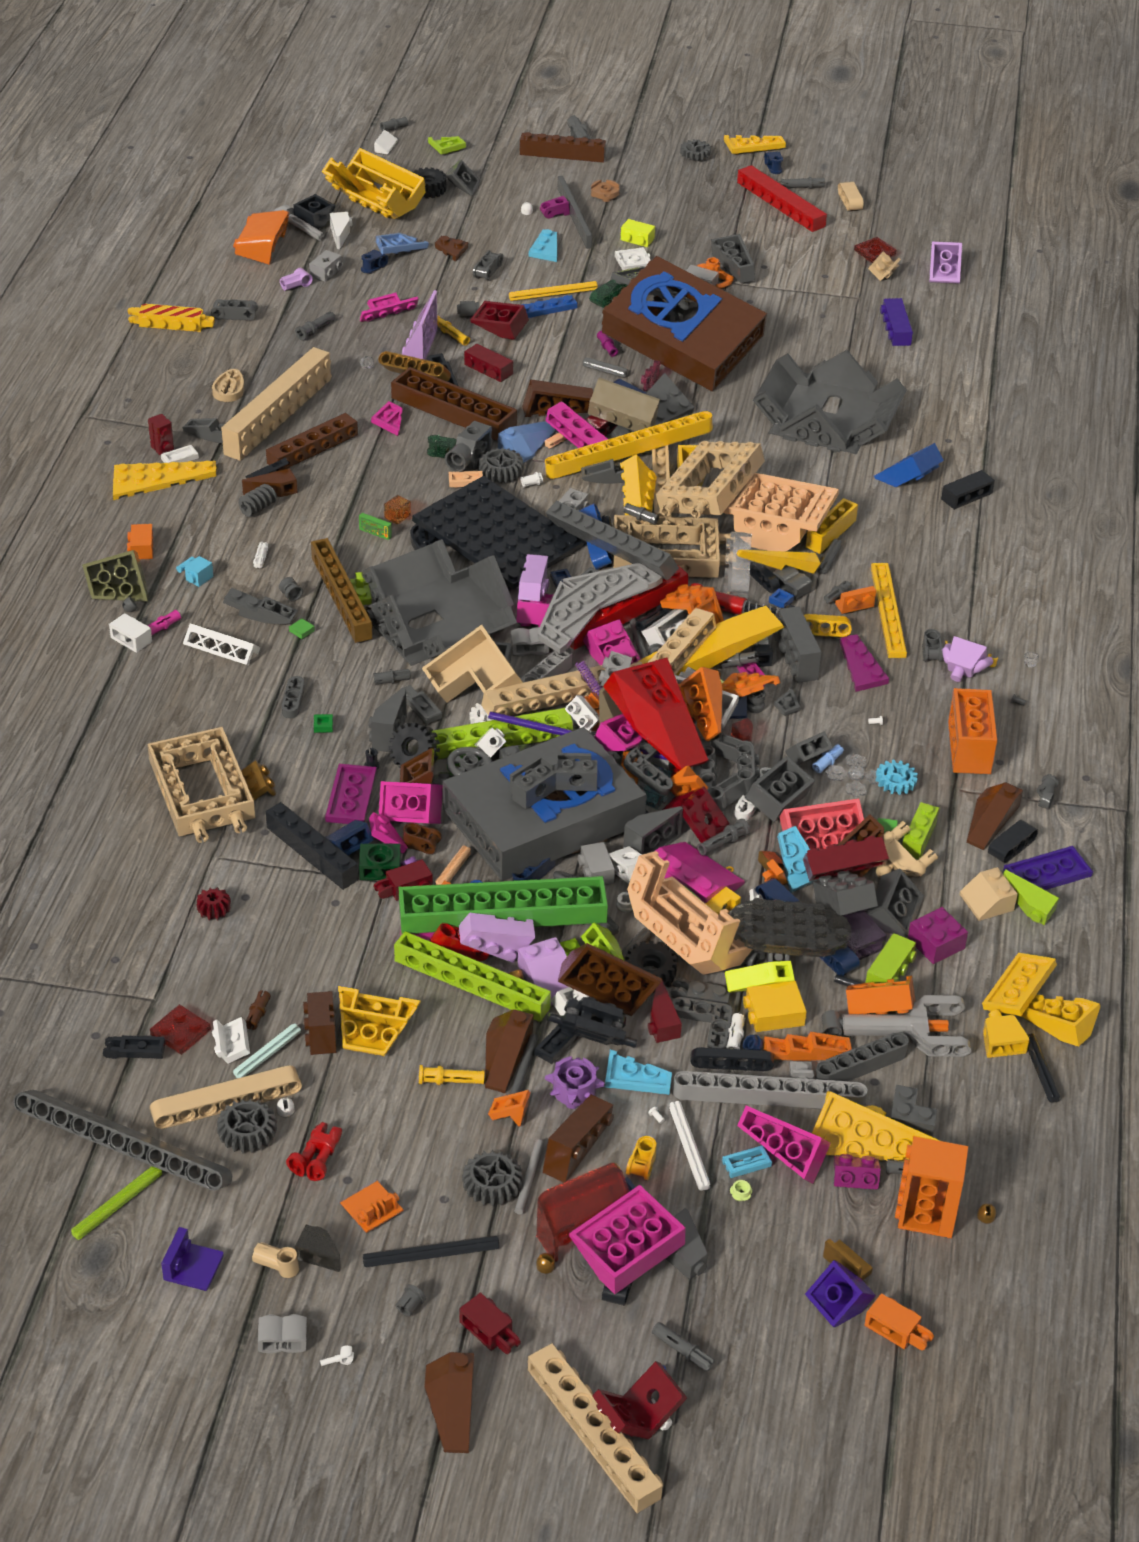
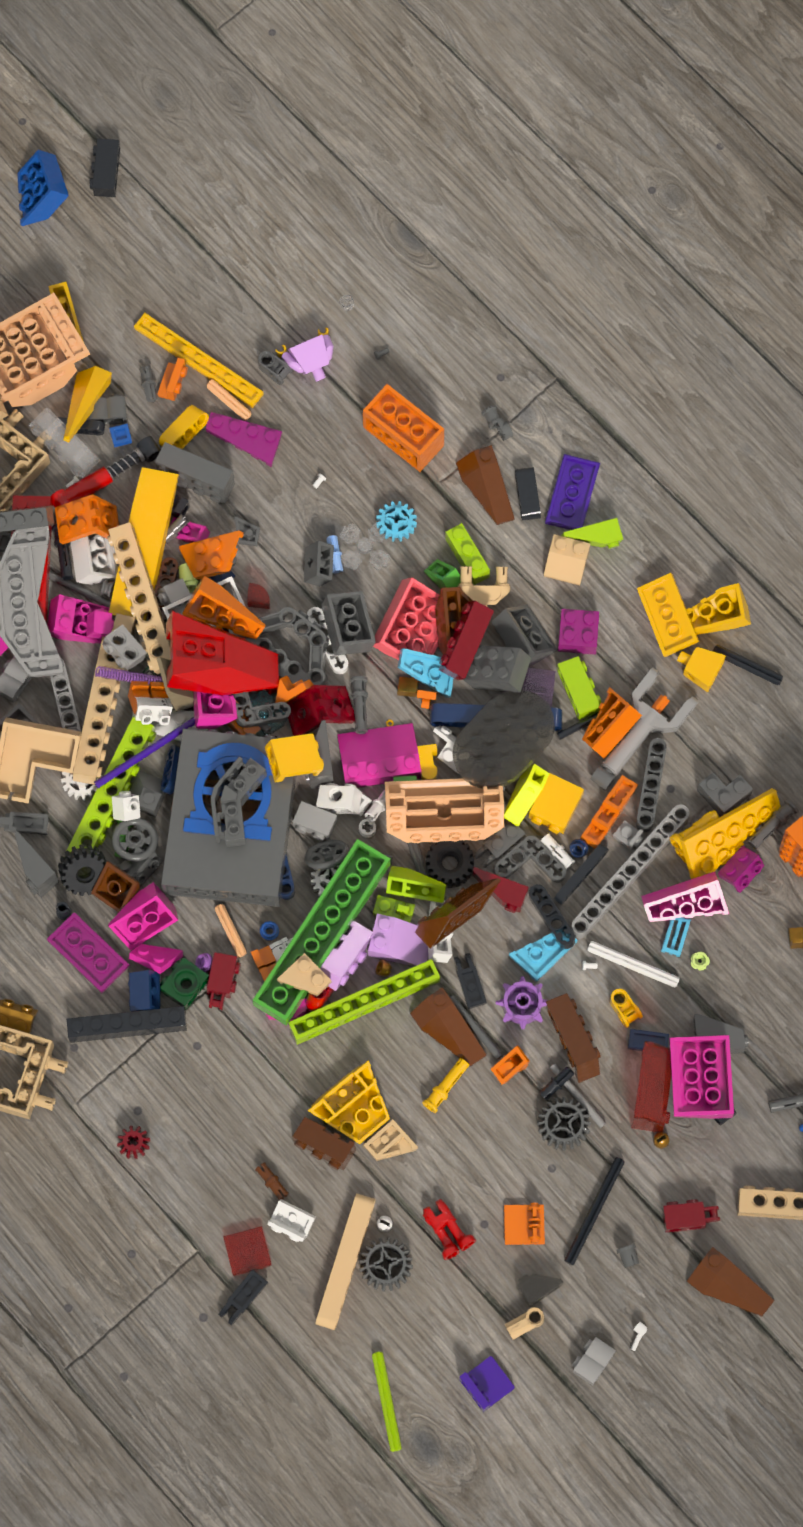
camera: 50 degrees left, 30 degrees up
(131, 1138) = (333, 1364): dark grey beam -> none
(267, 1051) = (319, 1201): light aqua axle -> none
(362, 1066) = (389, 1142): none -> tan wing
(420, 838) = (184, 932): reddish brown piece -> none
(450, 905) = (305, 976): none -> tan wing
(525, 1149) = (556, 1083): none -> black axle
(594, 1021) = (478, 958): black piece -> none
(630, 795) = (293, 756): none -> yellow panel
(670, 1057) = (549, 917): none -> black beam
(829, 556) = (96, 349): dark grey axle -> none
(878, 639) = (229, 400): none -> light nougat axle

